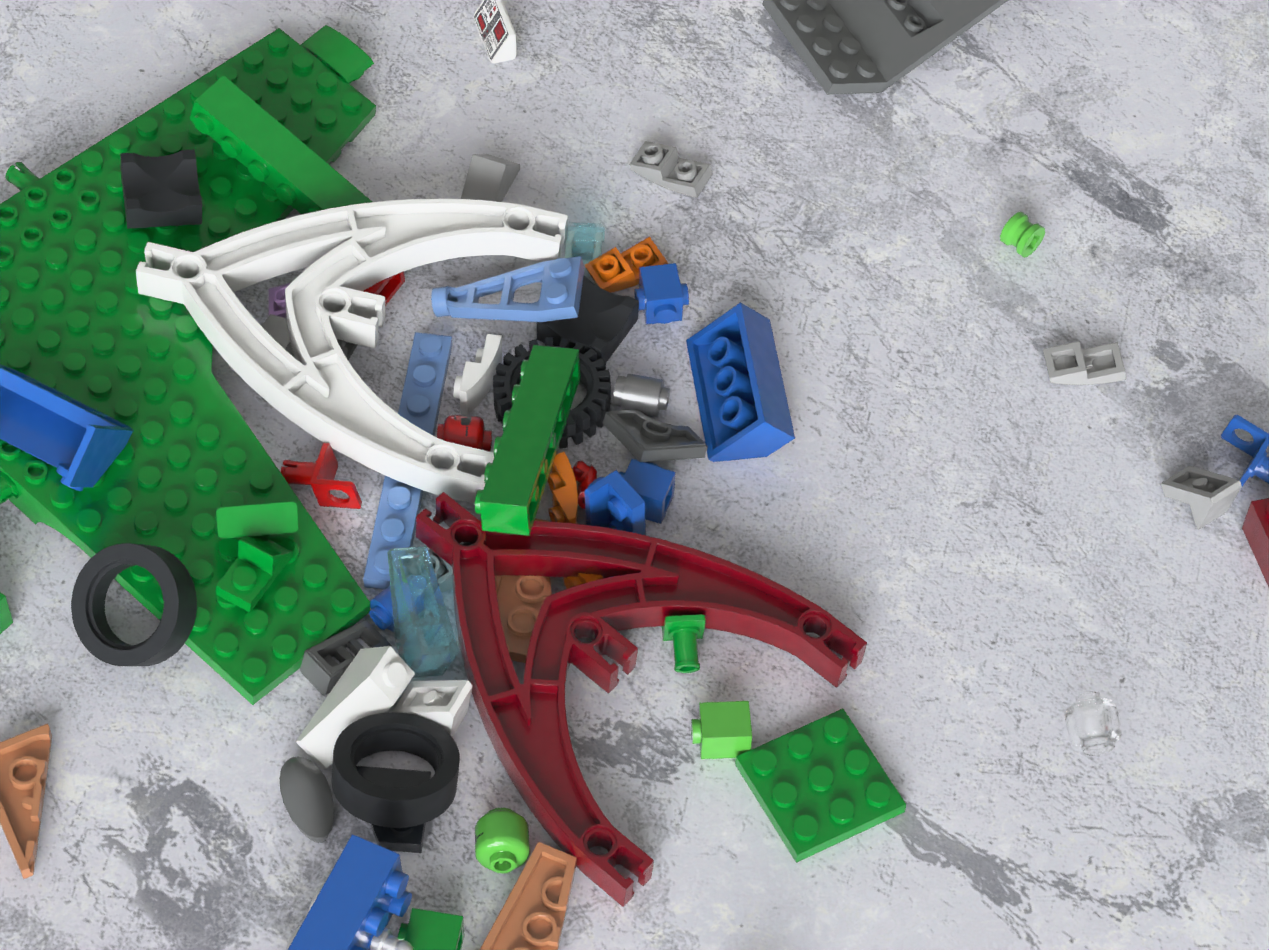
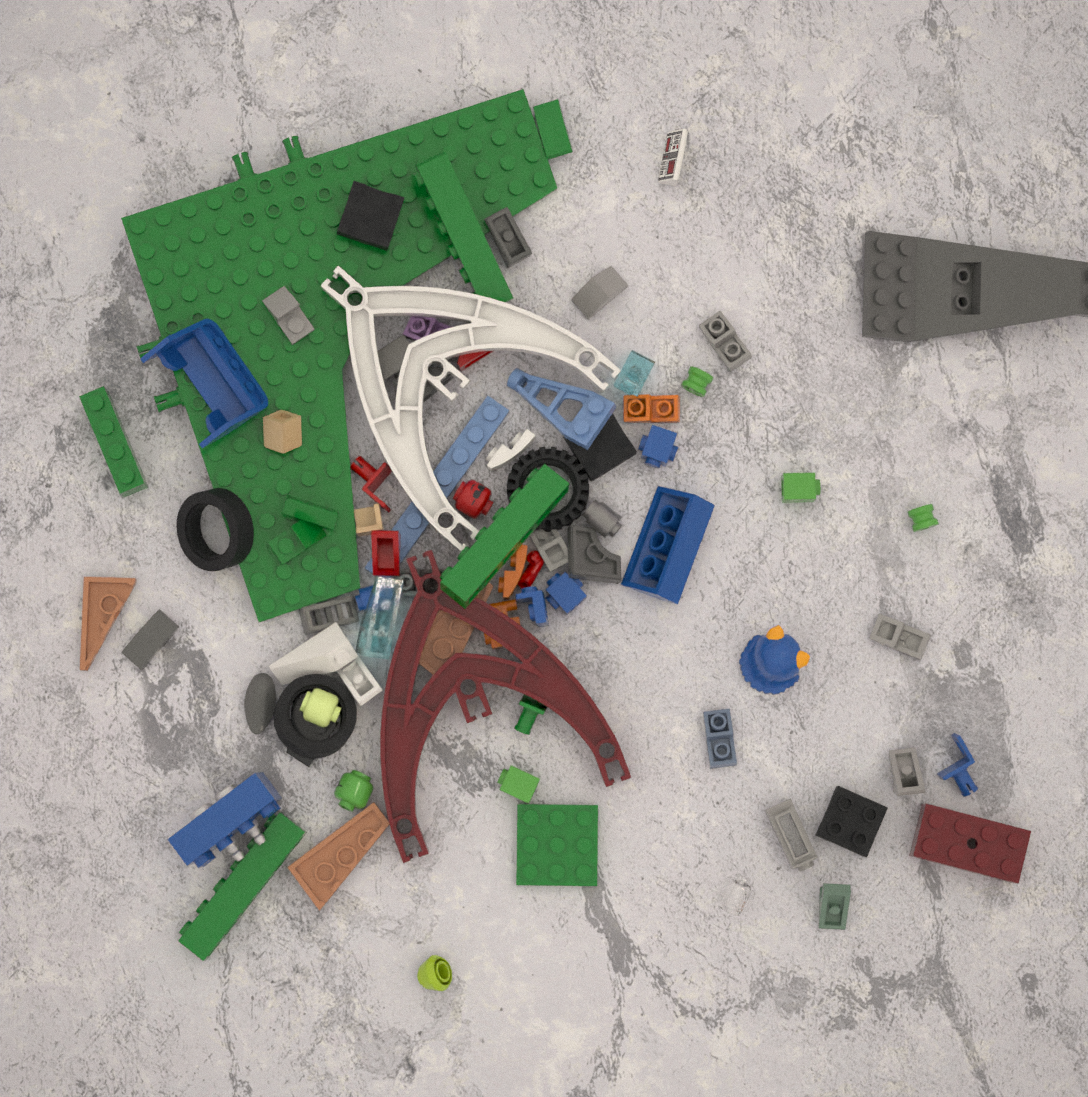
camera: 30 degrees right, 30 degrees up
(106, 792) = (150, 639): none -> dark grey slope
(108, 330) = (288, 315): none -> light grey slope
(168, 453) = (282, 431): none -> tan panel
(343, 524) = (368, 519): none -> tan panel
(352, 166) = (508, 237): none -> dark grey slope
(379, 526) = (386, 552): none -> red slope
(397, 751) = (320, 707): none -> yellowish green head
(600, 451) = (551, 548): none -> light grey slope
(664, 215) = (697, 381): none -> bright green wheel
(857, 265) = (799, 487): none -> bright green brick
(942, 564) = (719, 738): none -> sand blue slope
(954, 445) = (772, 661): none -> blue hair
(1111, 626) = (791, 835): none -> light grey window
(1174, 577) = (851, 821): none -> black brick
(1224, 676) = (834, 906): none -> sand green slope

